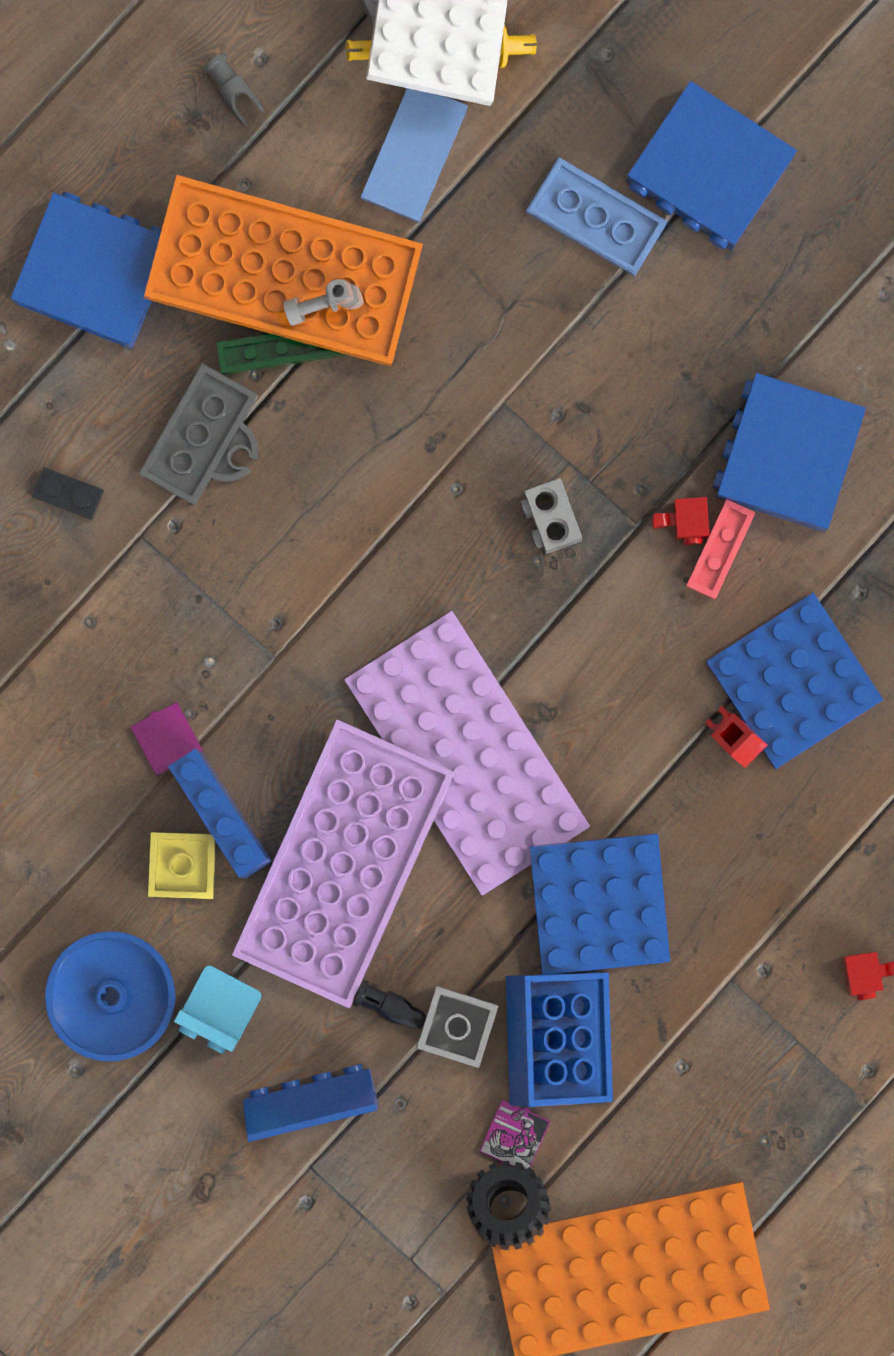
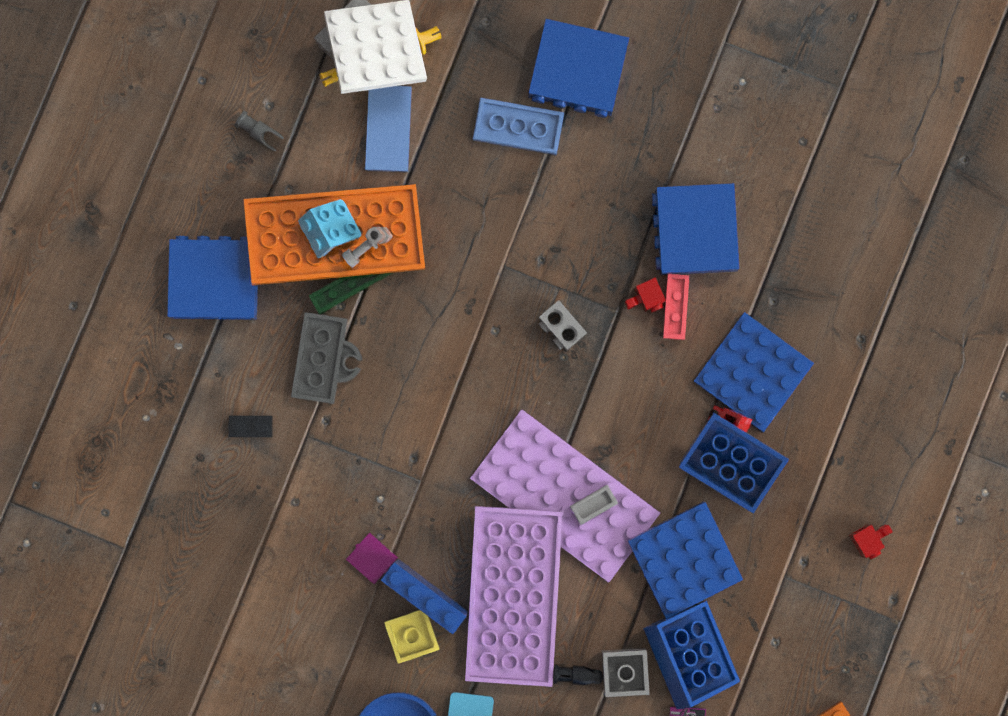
camera: 20 degrees left, 0 degrees up
(280, 257) = (329, 227): none -> medium azure bracket
(502, 779) = (593, 504): none -> light grey tile
(716, 793) = (733, 462): none -> blue slope

